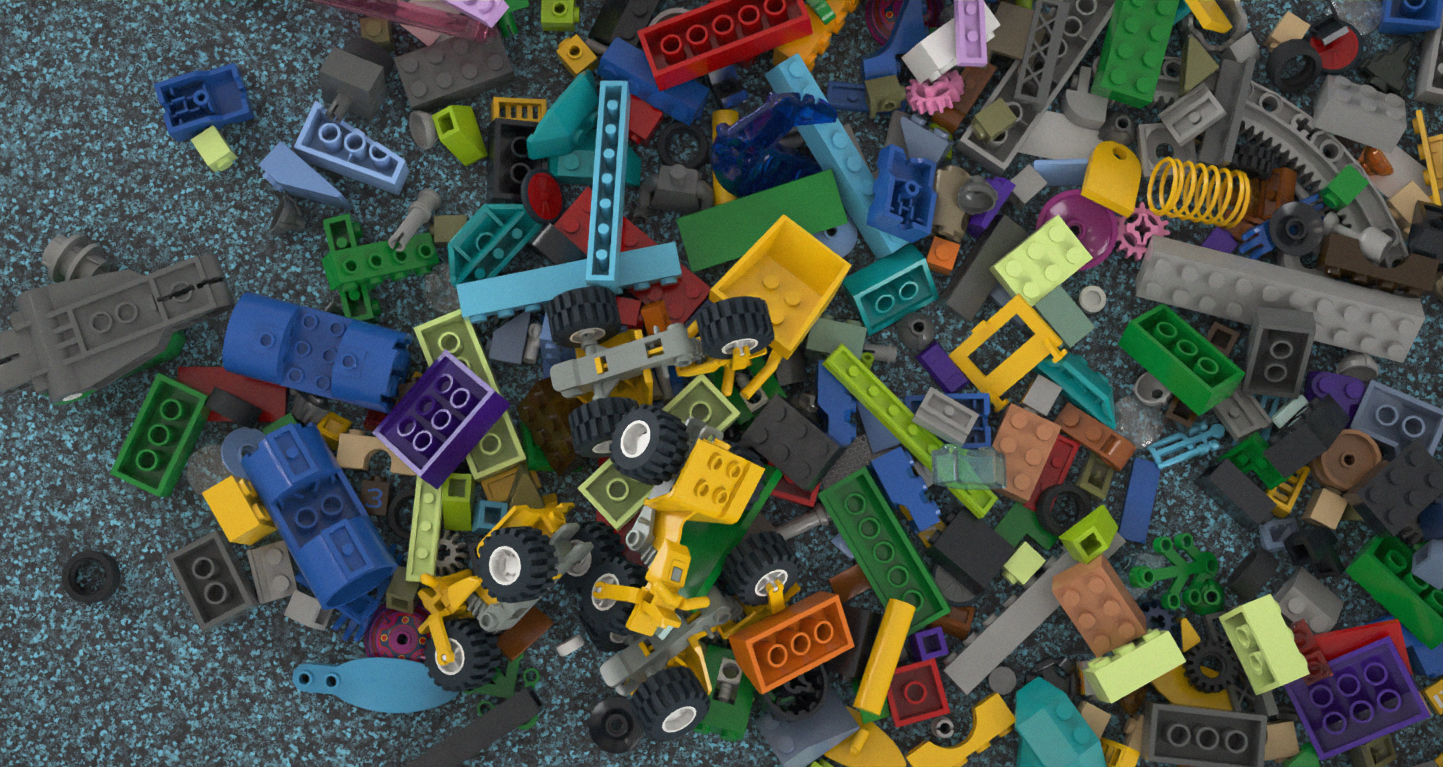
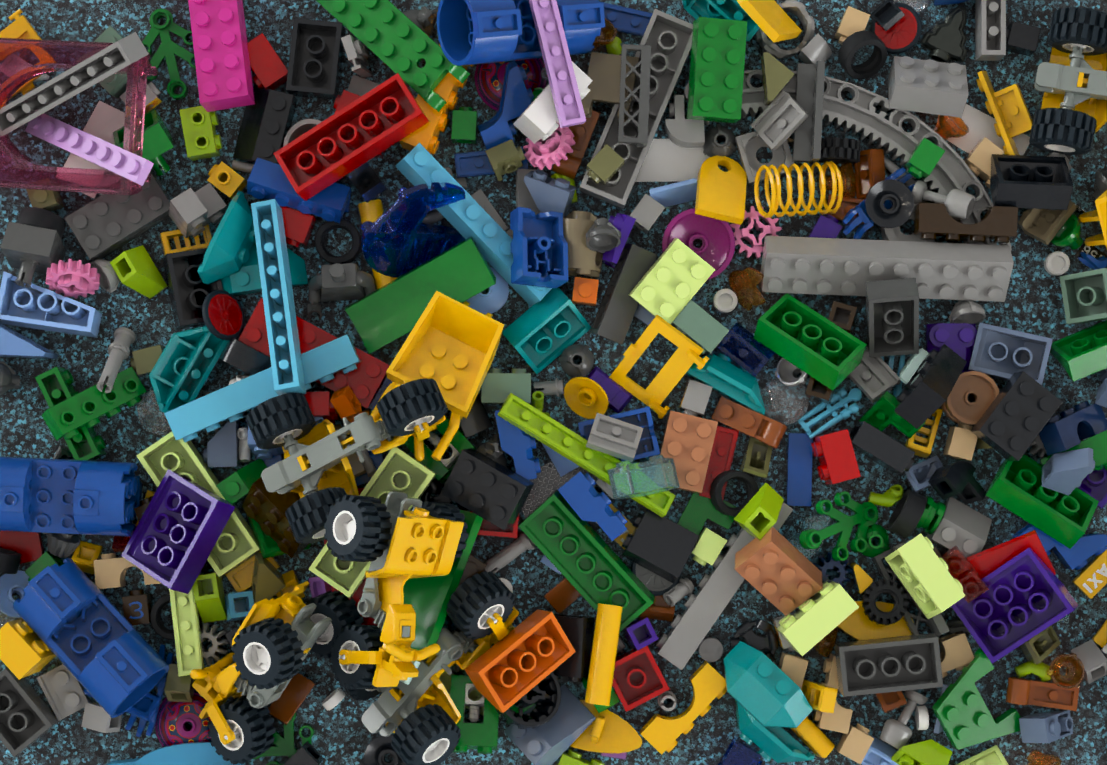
camera: 10 degrees left, 5 degrees up
(388, 124) = (72, 278): none -> bright pink gear
(518, 382) = (238, 484): none -> green slope
(537, 79) = (196, 209): none -> light grey brick
(583, 513) = (318, 586): none -> medium lavender plate
(845, 53) = (464, 126): none -> green brick
(910, 372) = (585, 397): none -> yellow dish
(979, 607) = (679, 591): none -> light grey pin
(1106, 355) = (745, 350): none -> clear blue brick
(1118, 288) = (745, 285): none -> clear orange plate
(1184, 493) = (835, 457): none -> red brick
(1233, 553) = (888, 498): none -> lime arm
(1280, 582) = (932, 515): none -> green wheel

